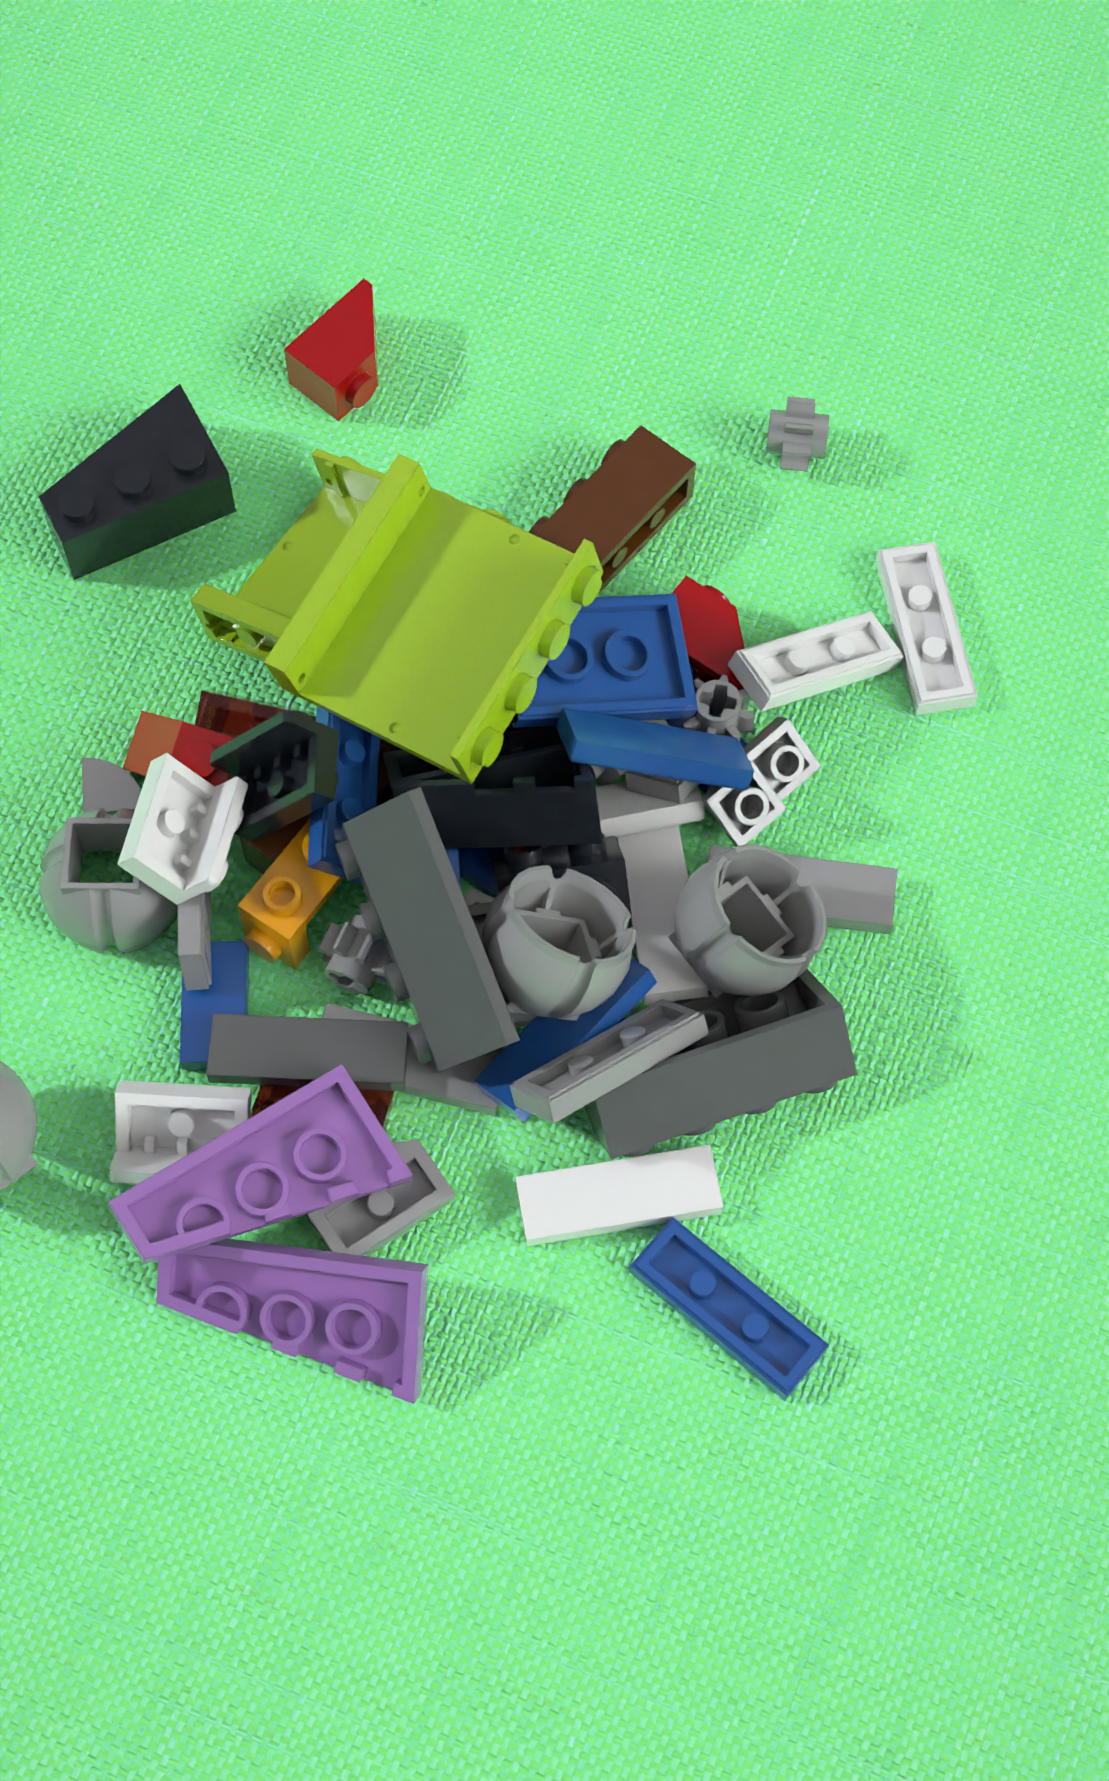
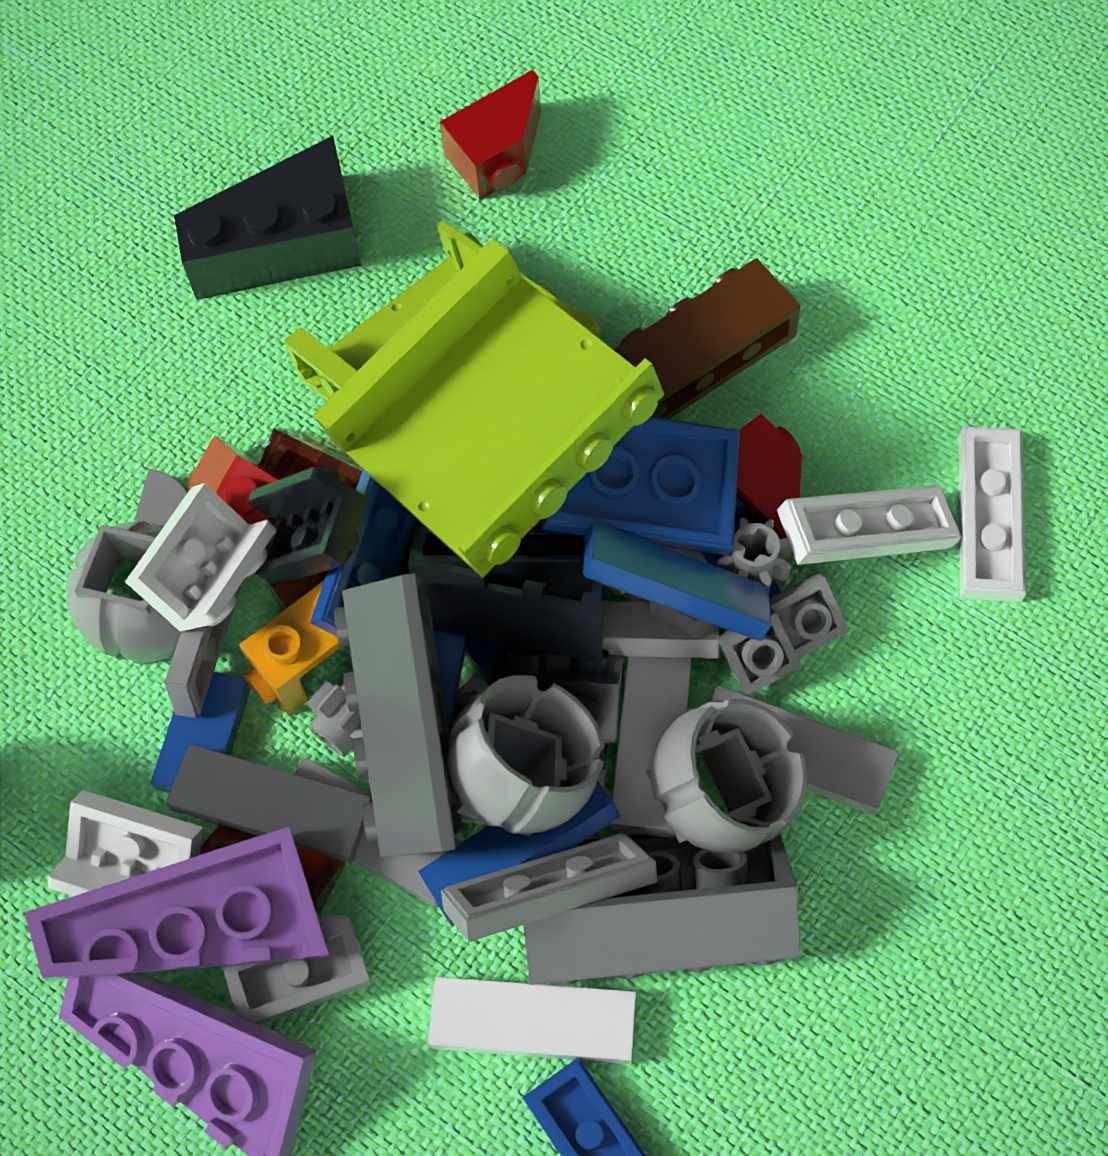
camera: 20 degrees right, 0 degrees up
(797, 434) = (910, 296): light grey gear -> none

